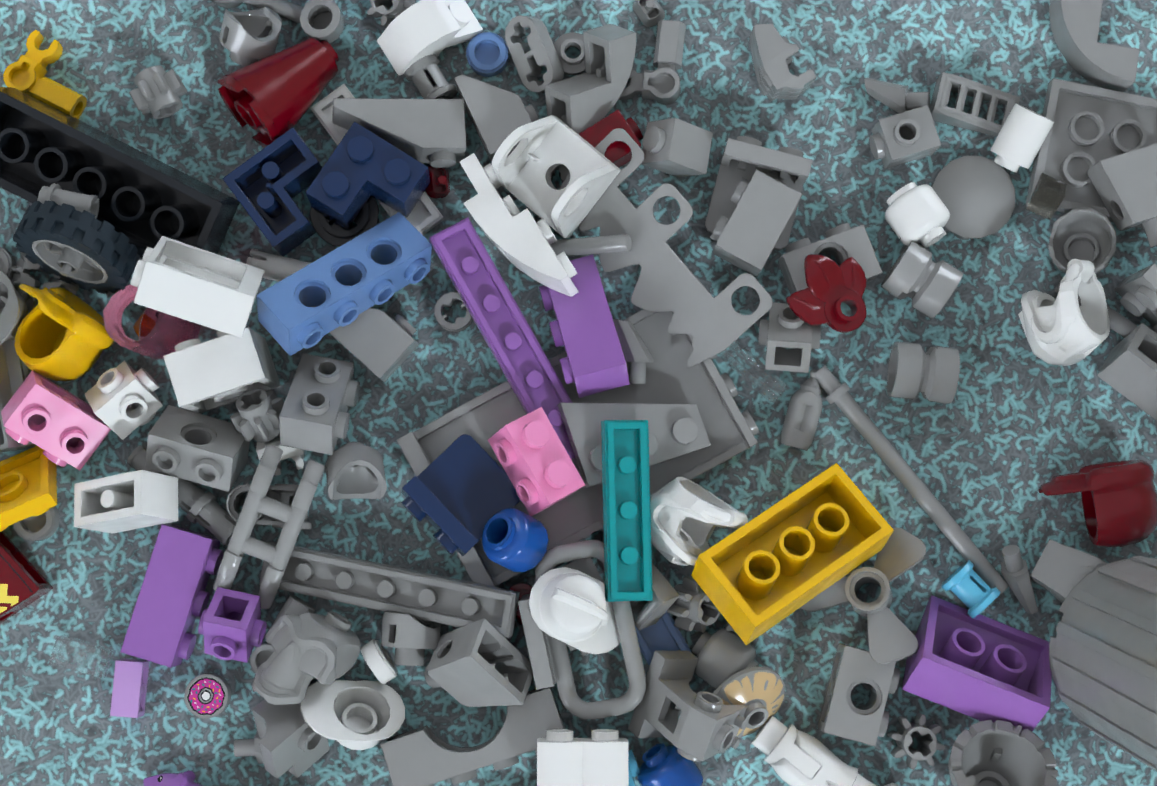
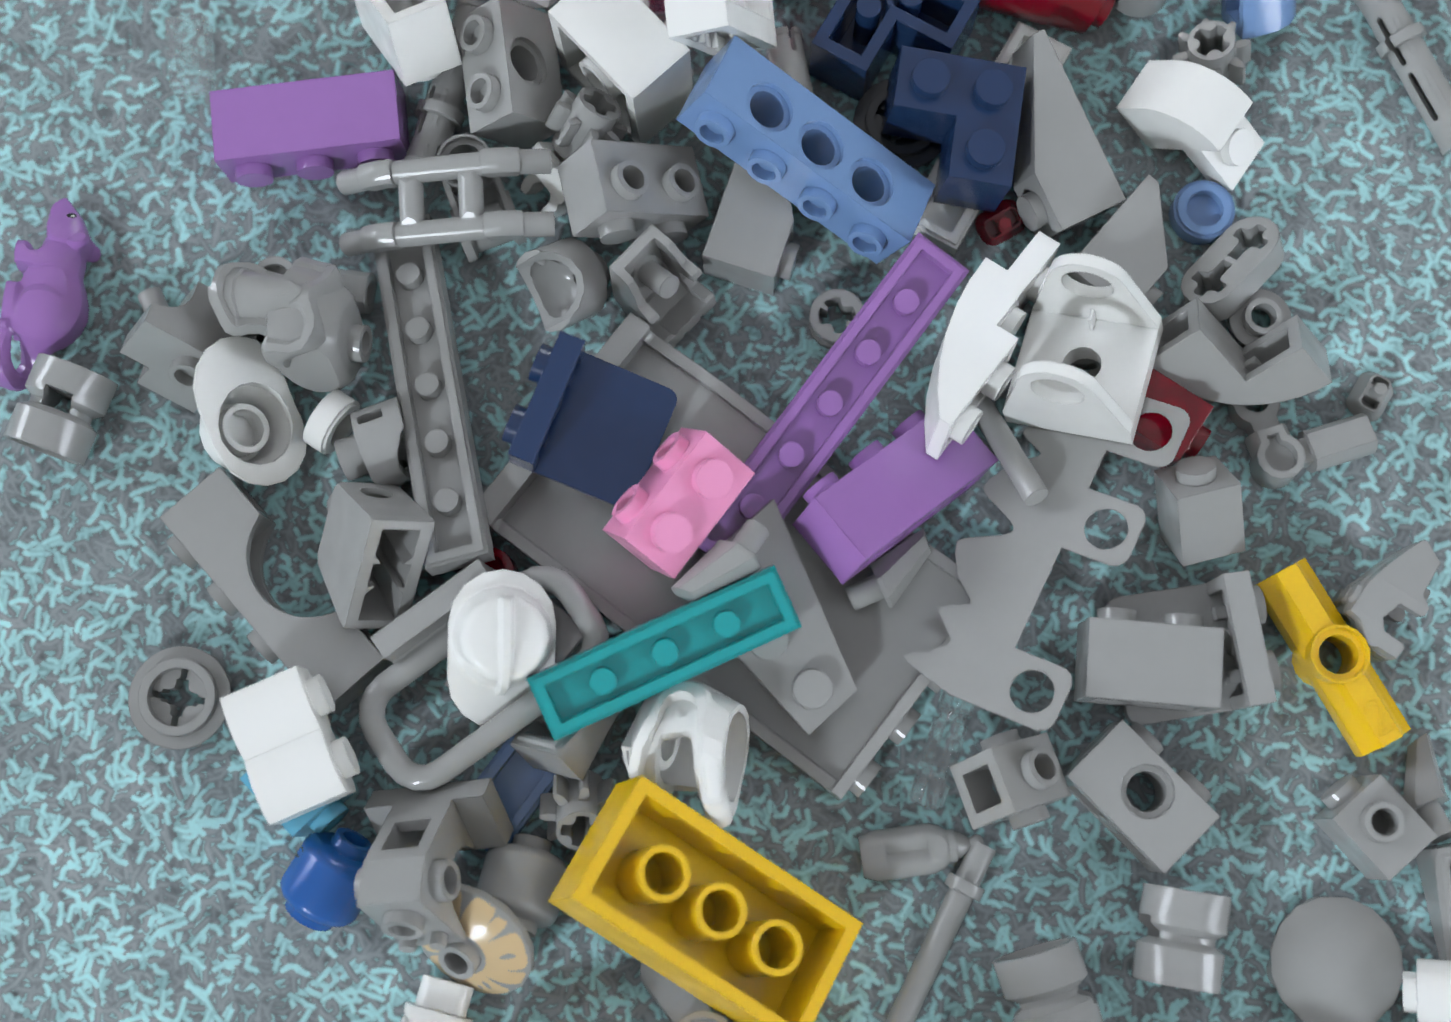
camera: 70 degrees right, 5 degrees down
(129, 688) = (172, 130): lavender piece -> none
(207, 695) = (203, 230): tile -> none
(232, 625) = (301, 214): medium lavender brick -> none
(388, 413) = (660, 286): none -> light grey hand
(425, 70) = (1152, 144): light grey bush -> none
(515, 540) = (559, 519): blue head -> none
(589, 450) = (724, 563): none -> light grey bar
(824, 112) = (1355, 693): none -> yellow piece
(827, 289) = (1099, 801): dark red plate -> none
(917, 214) = (1271, 890): white head -> none

